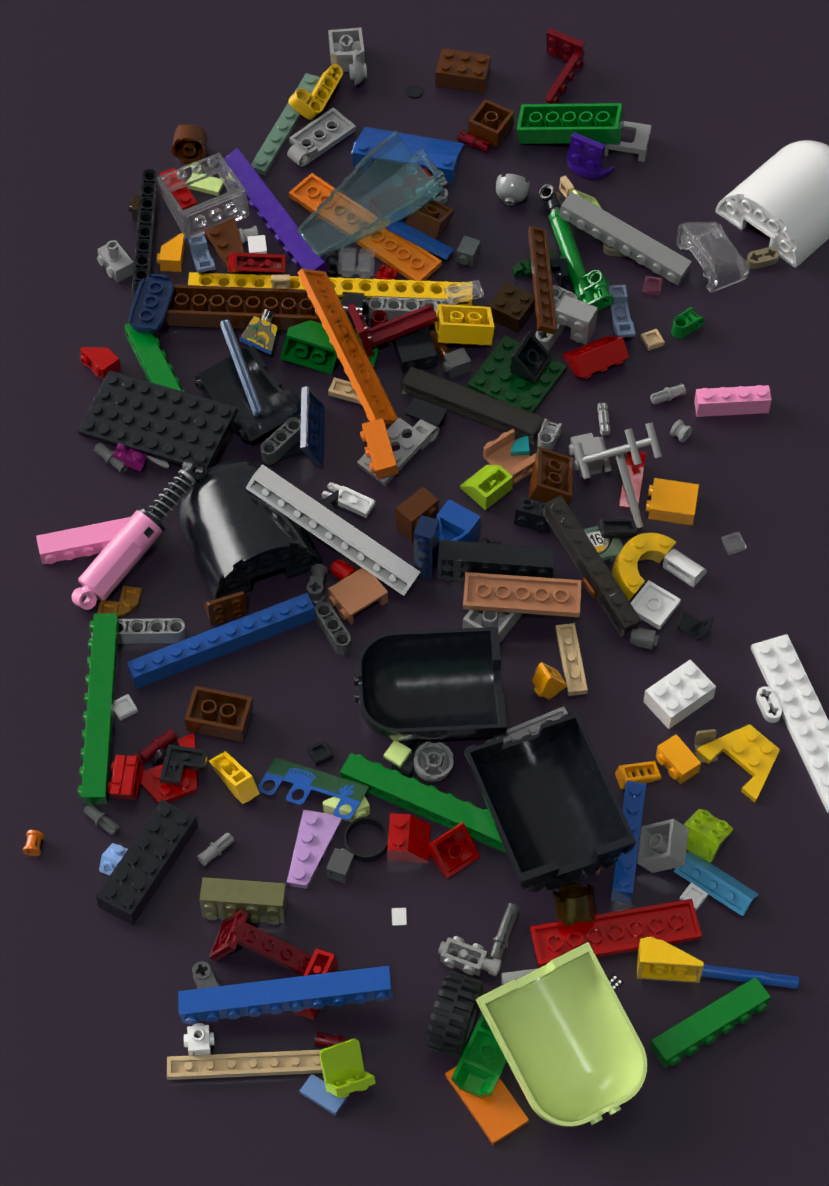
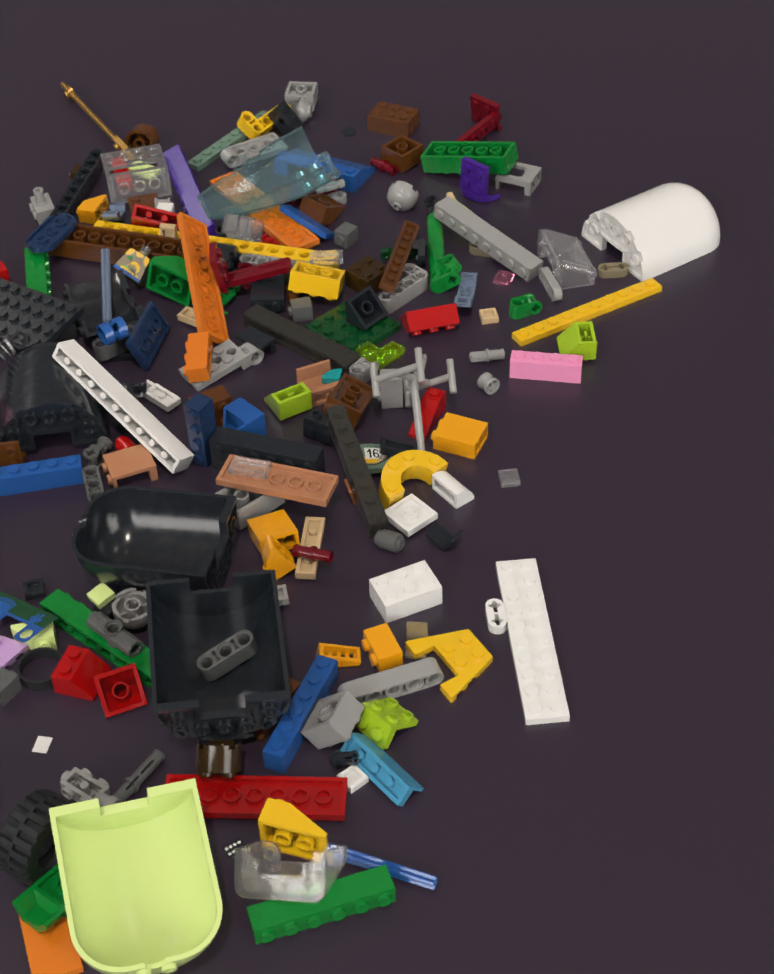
camera: 15 degrees right, 15 degrees down
(165, 153) = (69, 93): none -> pearl gold bar
(282, 434) = (111, 331): none -> blue wheel
(343, 89) = (284, 118): none -> black brick
(441, 800) = (114, 634): none -> dark grey piece
(493, 586) = (249, 467): none -> clear tile
(530, 648) = (276, 524): none -> light orange brick
(552, 792) = (218, 658): none -> dark grey beam
(558, 412) = (381, 355): none -> clear neon green plate
(579, 317) = (423, 286): light grey brick -> none
(580, 669) = (312, 553): none -> dark red pin
(678, 1007) = (264, 876): none -> clear windscreen
(681, 880) = (340, 758): none -> black pin
(698, 794) = (395, 681): none -> light grey beam
(704, 288) = (550, 284): none -> light grey beam
(750, 319) = (586, 312): none -> yellow plate
(756, 364) = (578, 340): none -> lime slope

